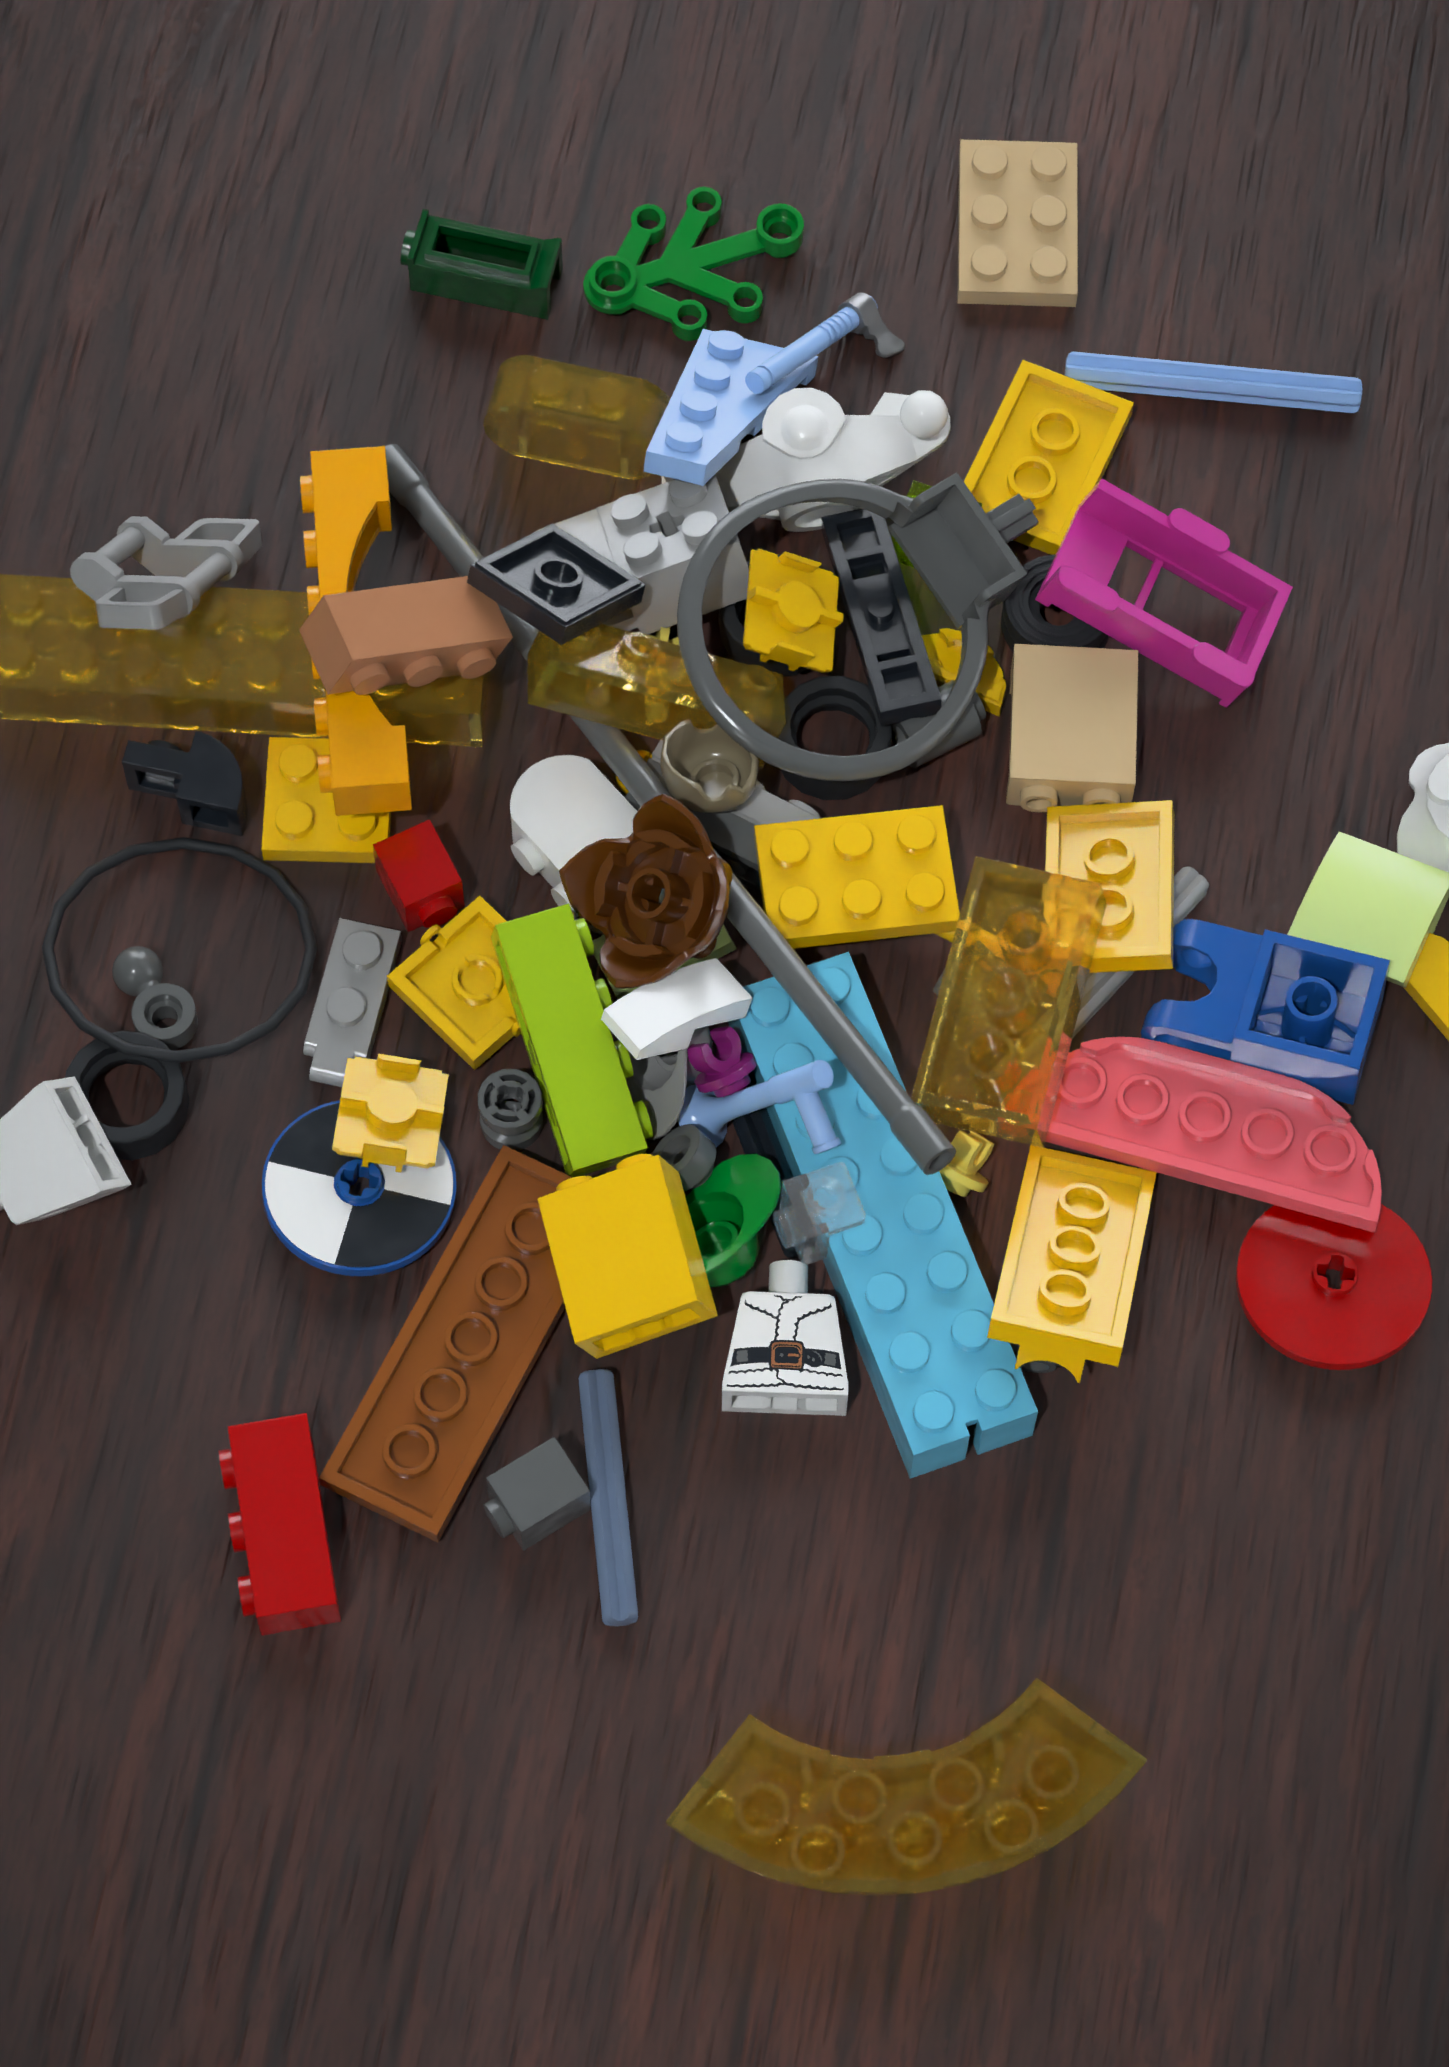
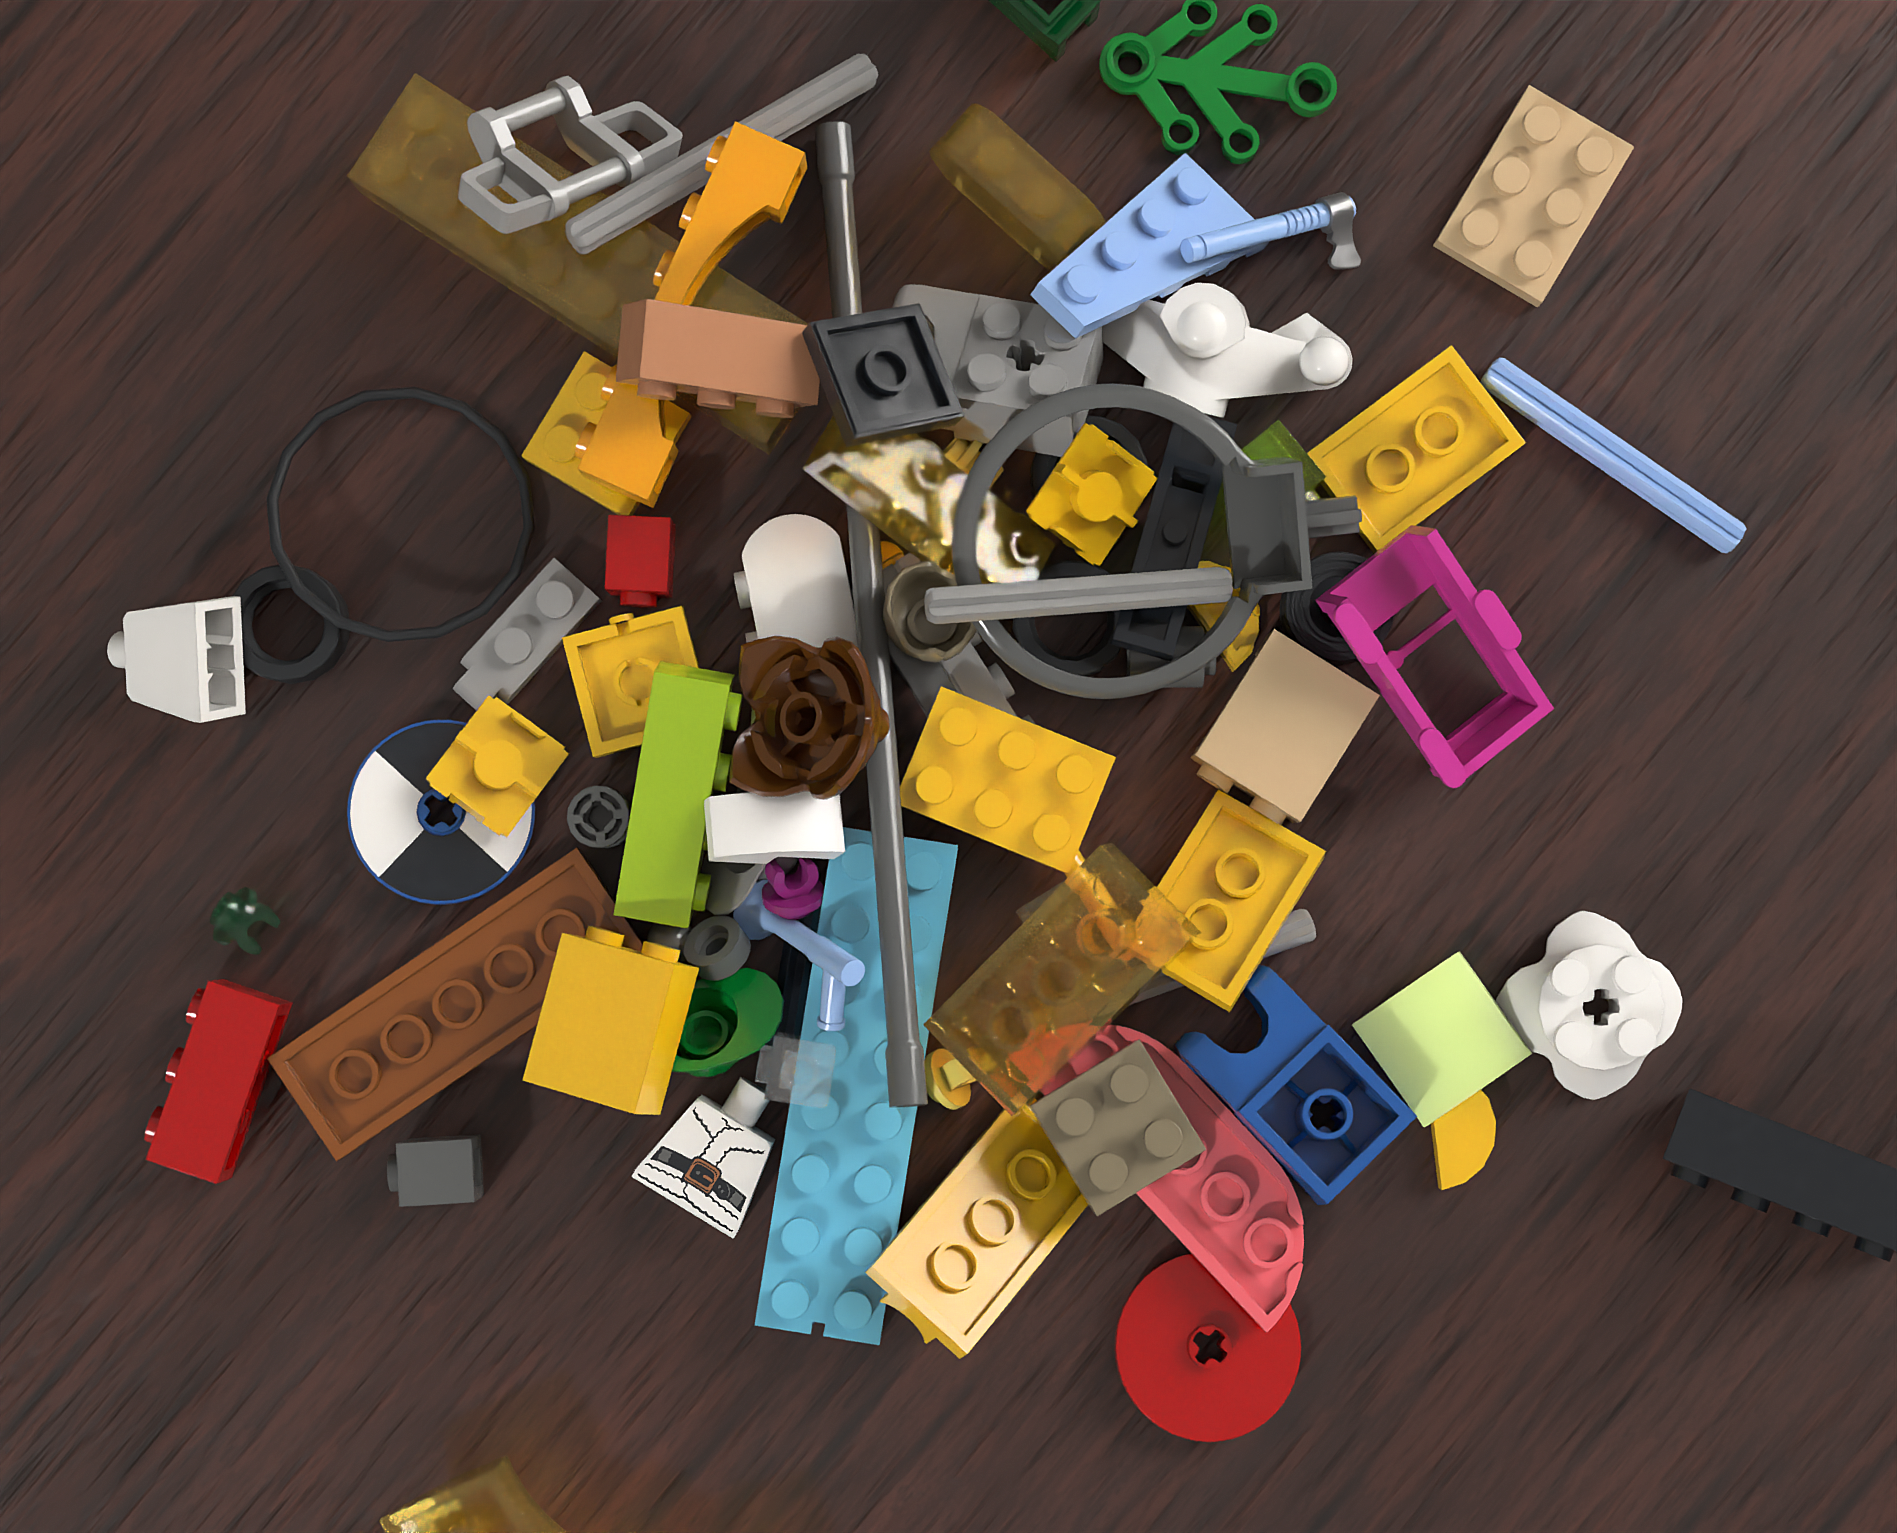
camera: 25 degrees right, 20 degrees up
(139, 974) = (358, 515): dark grey plate -> none
(202, 780) = (506, 367): black brick -> none
(216, 1373) = (235, 914): none -> clear green plate
(286, 529) = (688, 170): none -> light grey axle
(608, 1498) = (498, 1200): sand blue axle -> none
(829, 681) = (1077, 595): none -> light grey axle
(1134, 1109) = (1117, 1127): none -> dark tan brick

